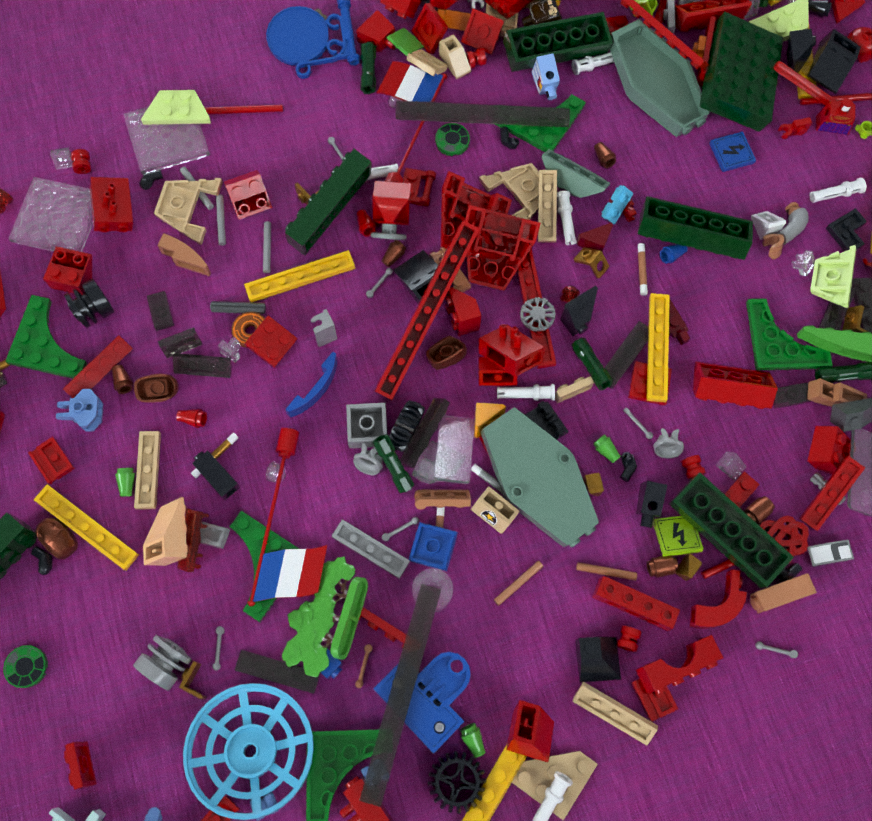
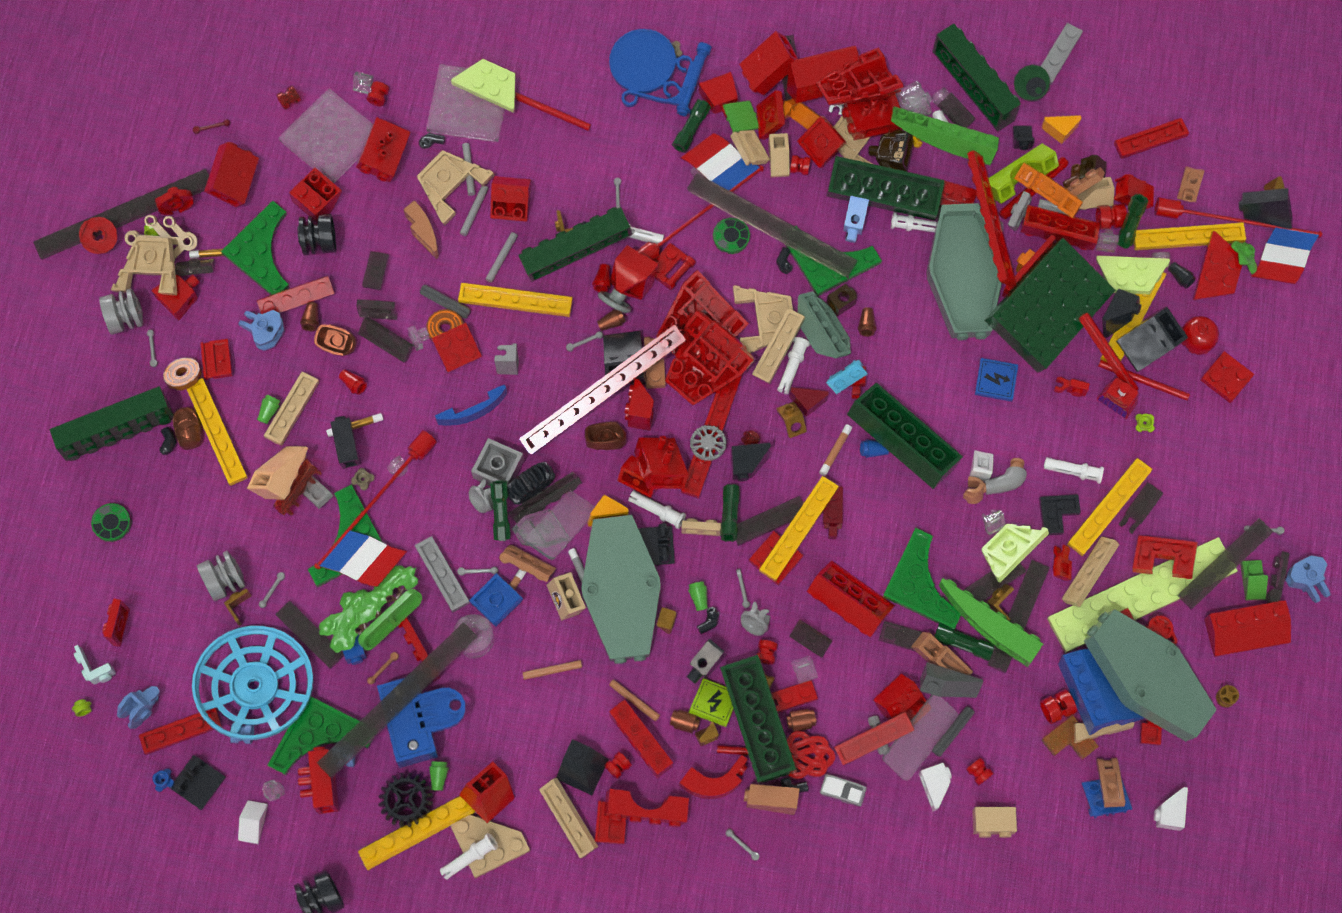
camera: 30 degrees right, 0 degrees up
(14, 492) = (179, 366): none -> tile
(245, 495) = (361, 473): none -> dark tan plate
(574, 152) = (839, 306): none -> dark brown brick
(722, 435) = (810, 638): none -> clear smoke plate

